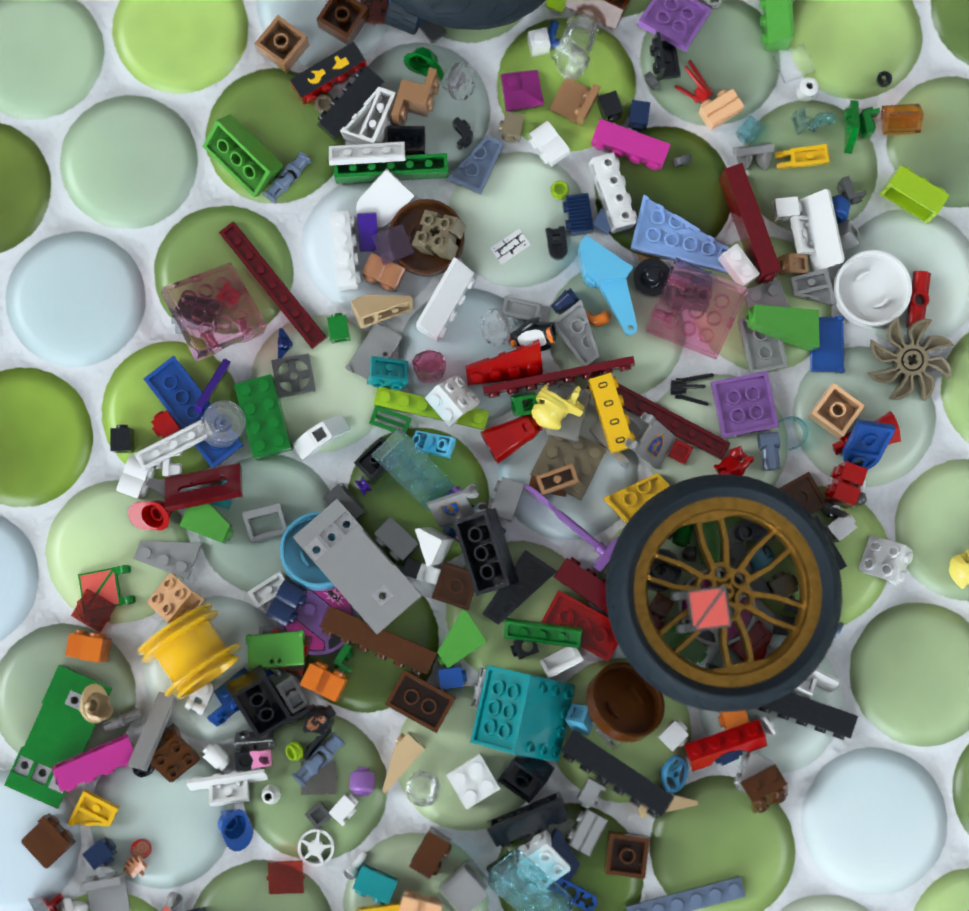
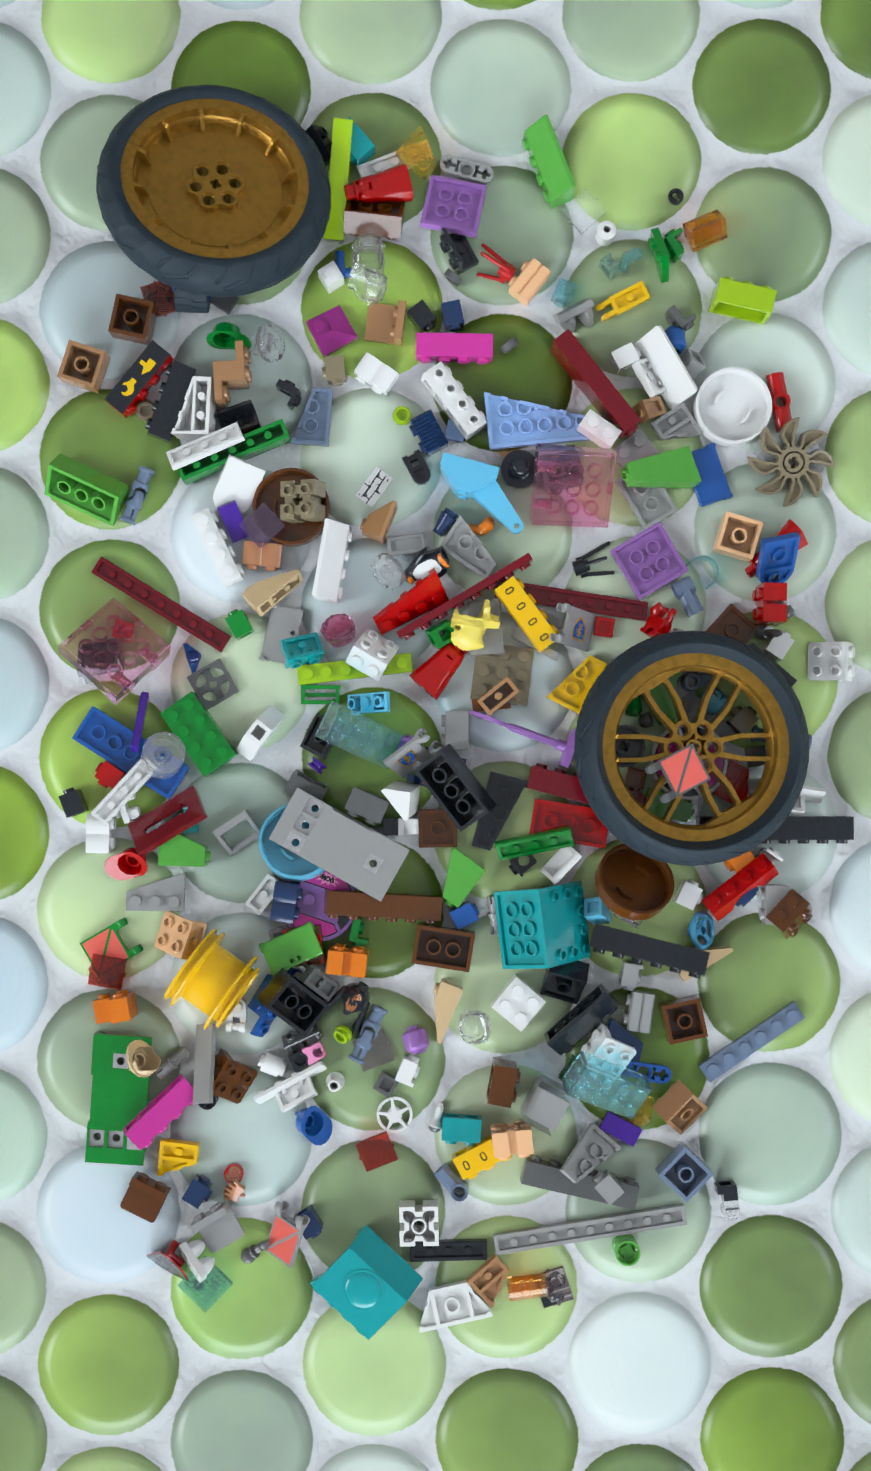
camera: 20 degrees left, 5 degrees up
(503, 280) = (379, 522): none -> medium nougat slope

